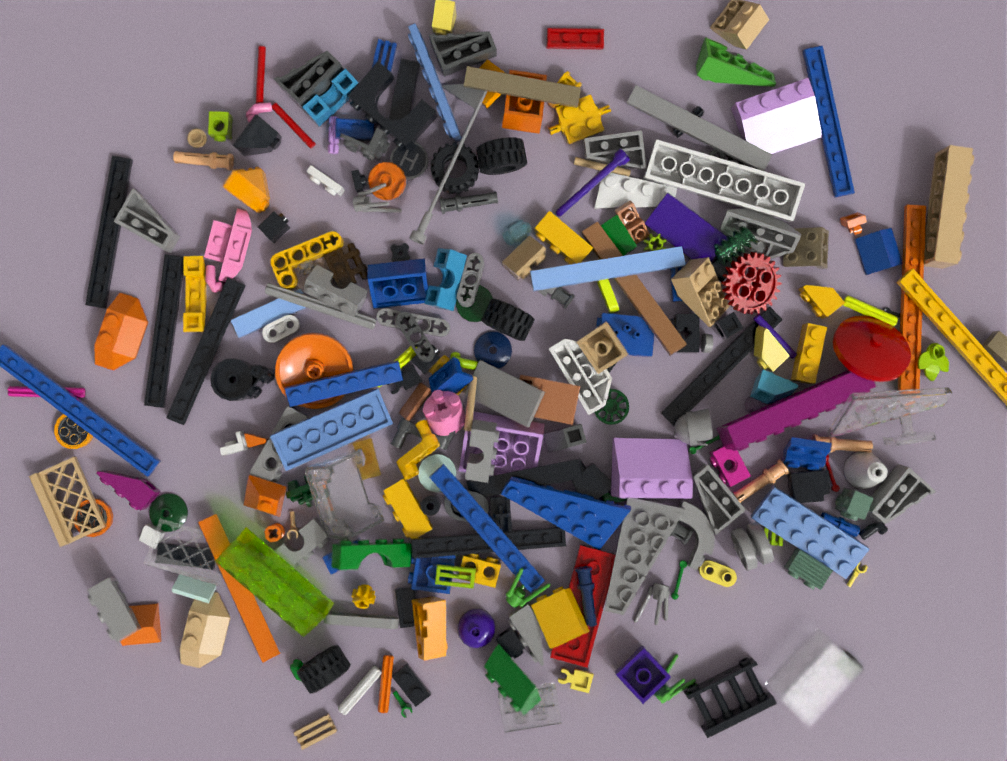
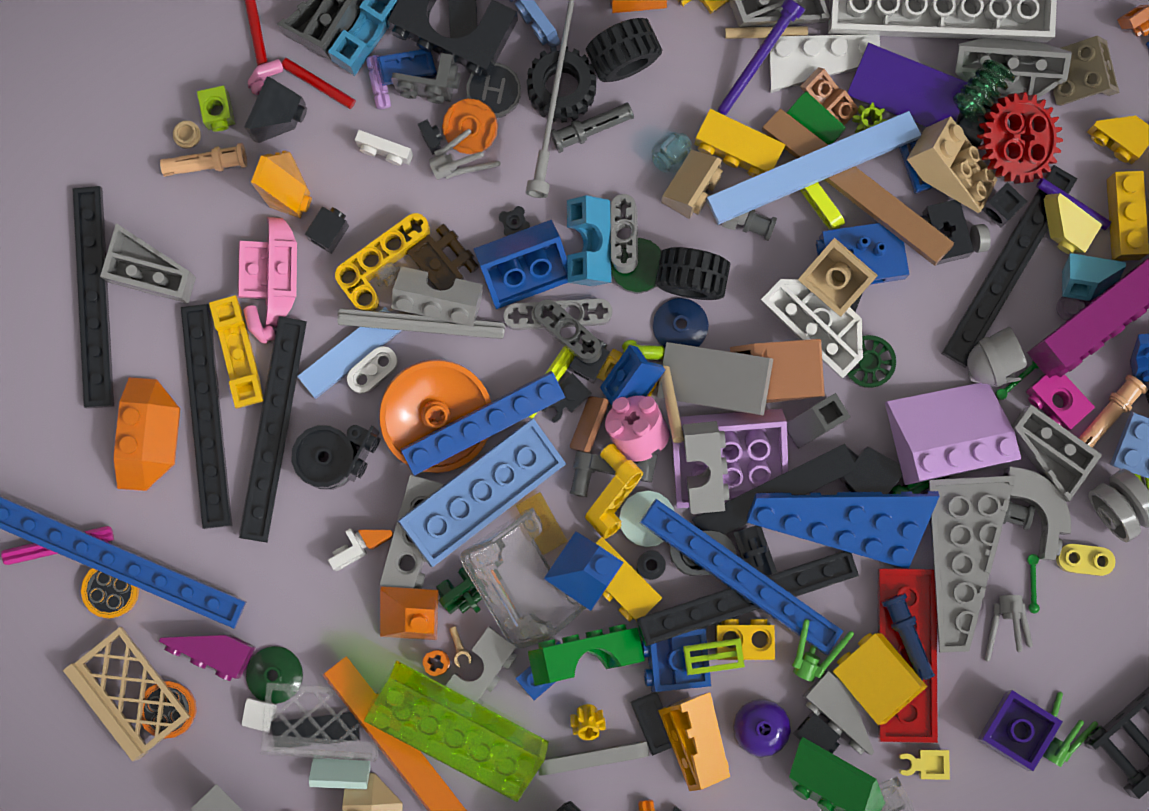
camera: 10 degrees left, 5 degrees down
(384, 498) = (583, 570): none -> blue slope

